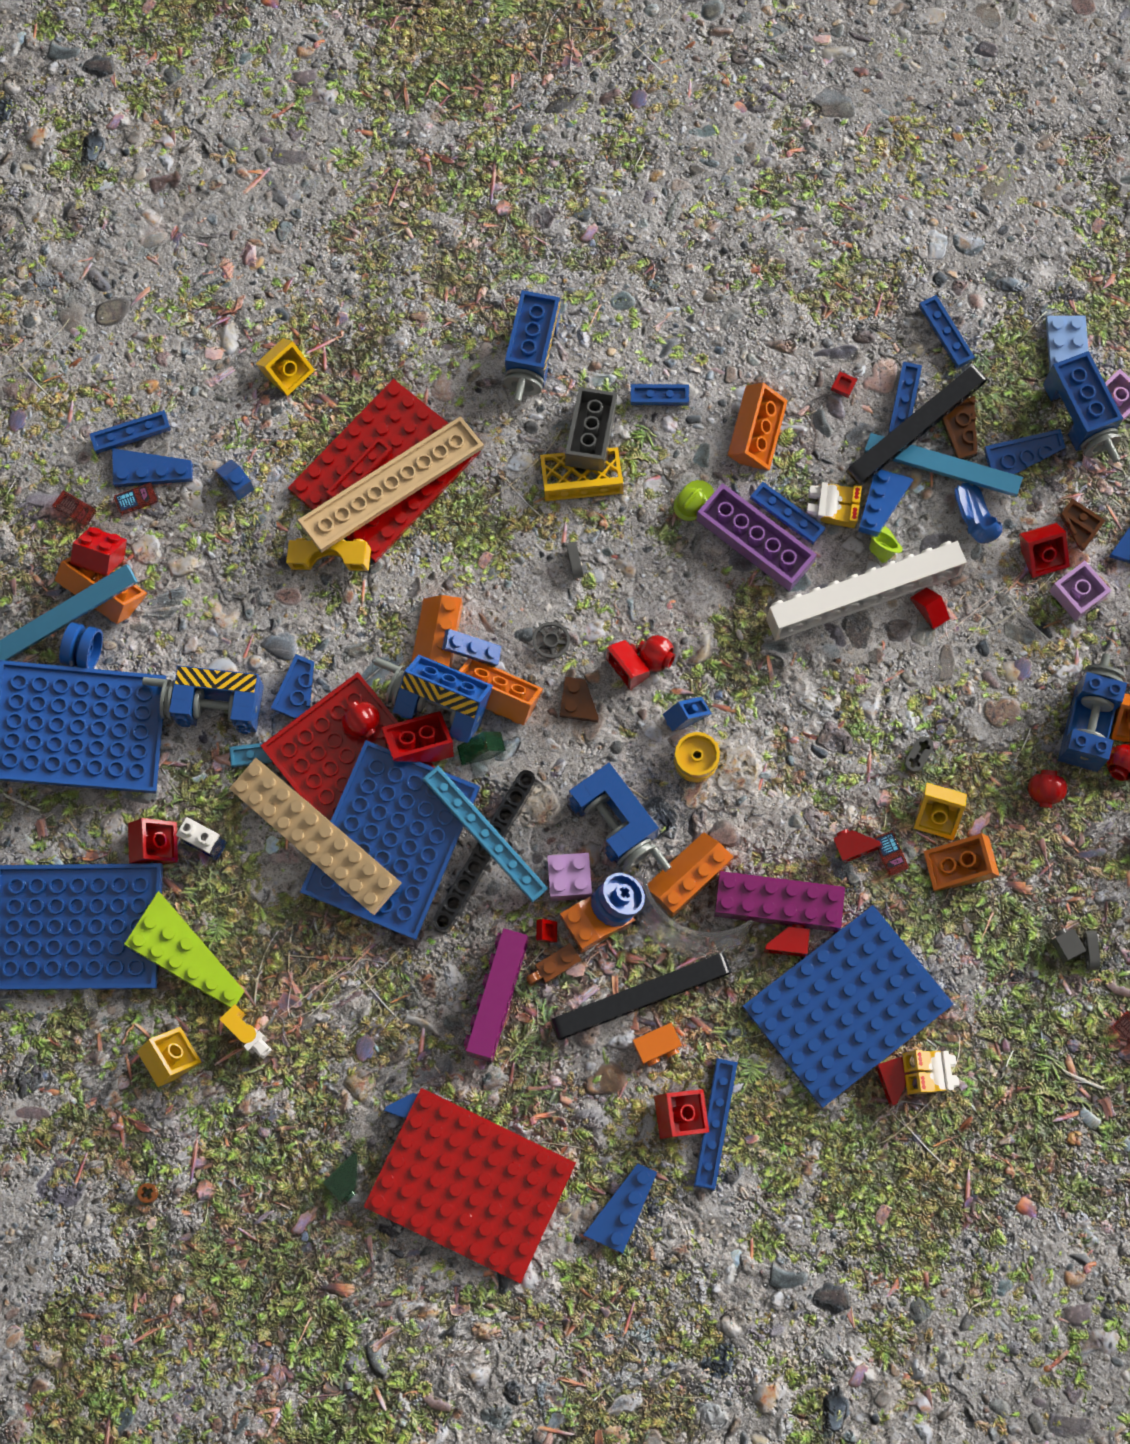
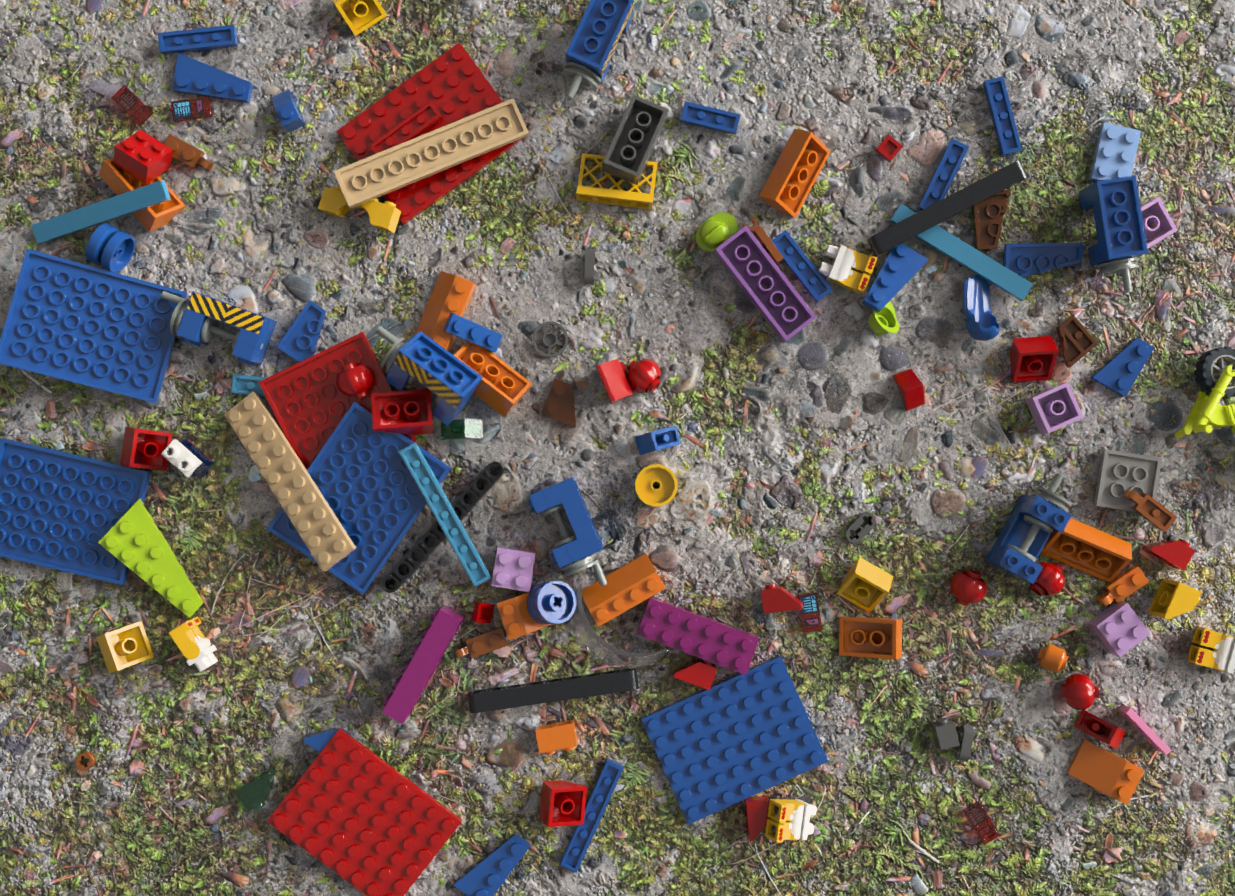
camera: 15 degrees right, 15 degrees up
(141, 542) = (187, 153): none -> dark orange plate
(746, 495) = (765, 241): none -> dark orange plate
(865, 590) = (855, 362): white brick -> none

